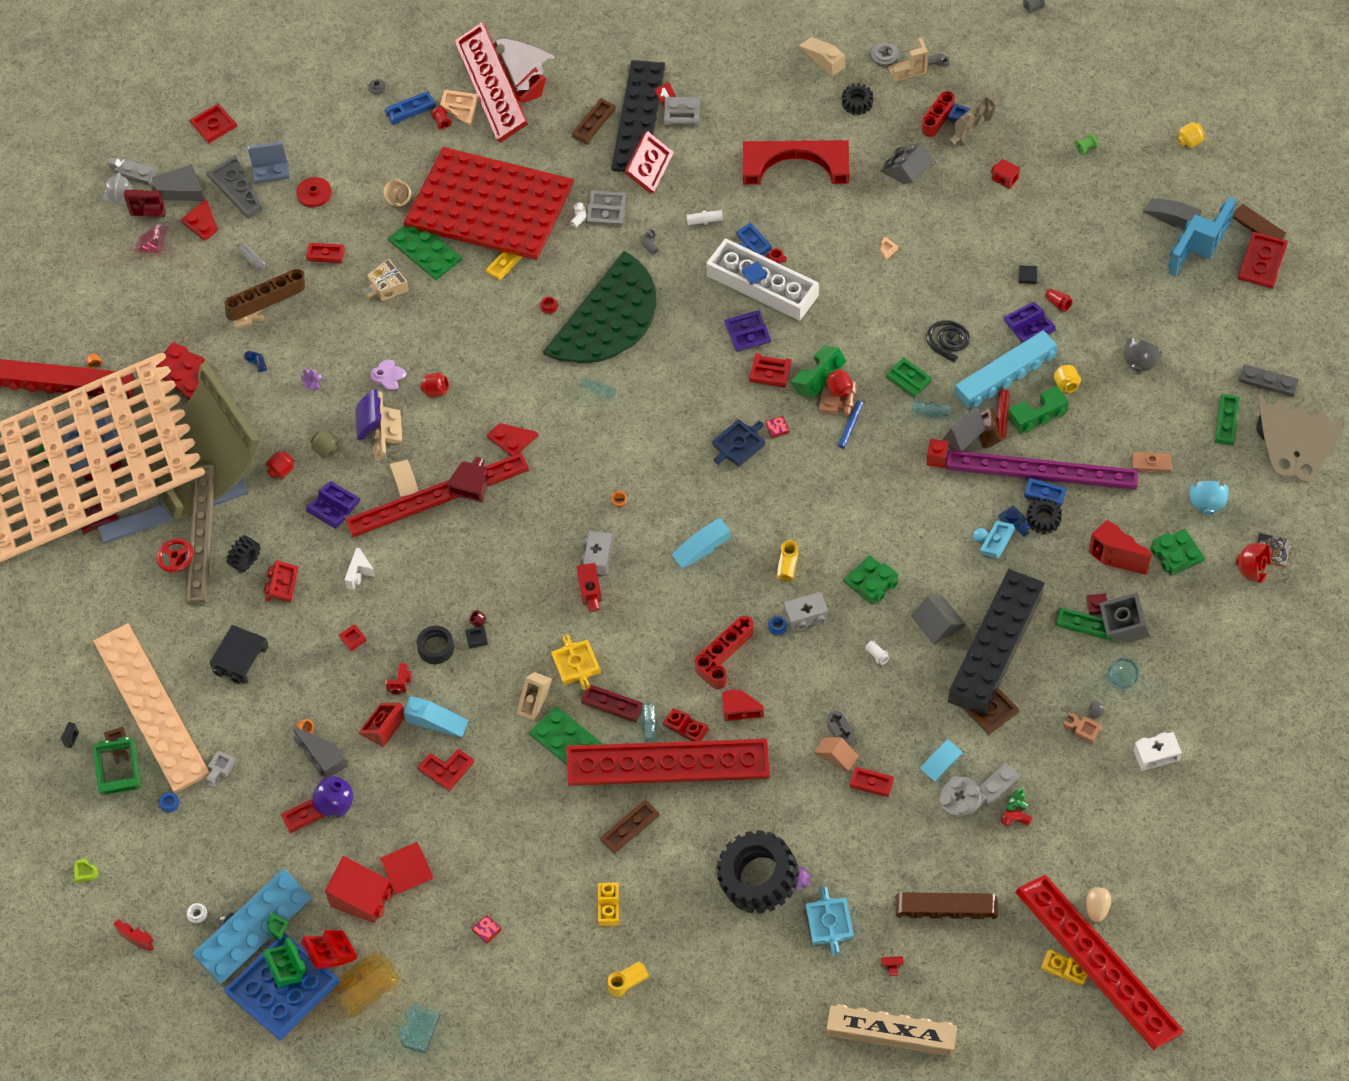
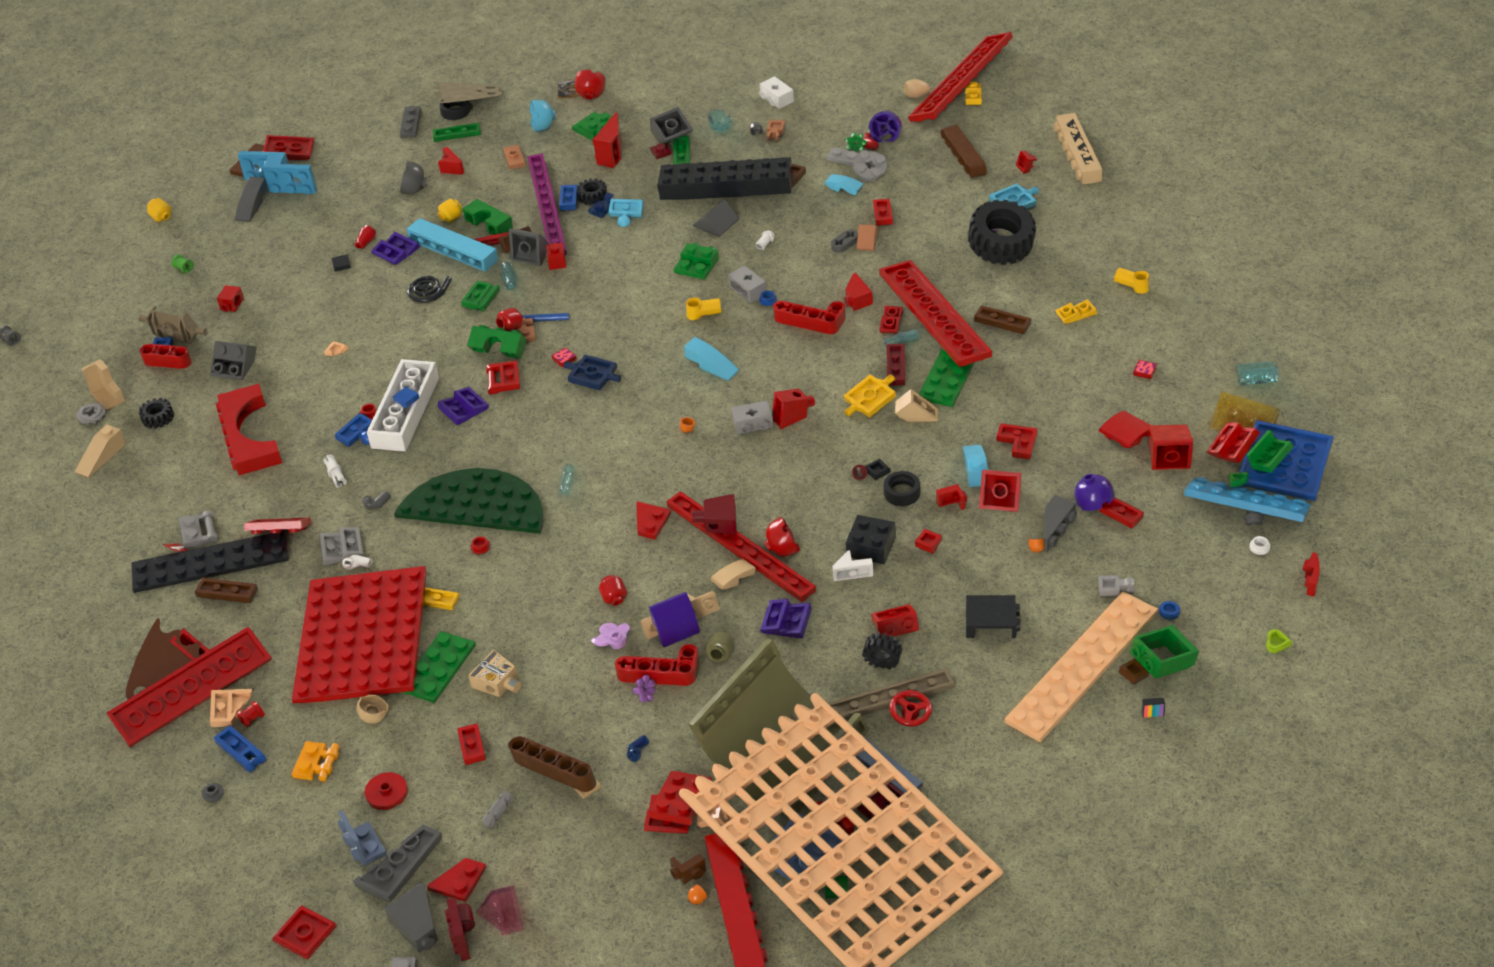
camera: 110 degrees left, 15 degrees down
(116, 355) = (689, 870): none -> reddish brown bracket
(326, 389) = (662, 670): none -> red beam
(372, 149) = (310, 758): none -> light orange plate
(381, 594) = (871, 539): none -> black brick
(417, 522) = (780, 538): none -> red cylinder
(1028, 839) = (885, 123): none -> dark purple cylinder
(1159, 400) = (450, 163): none -> red slope

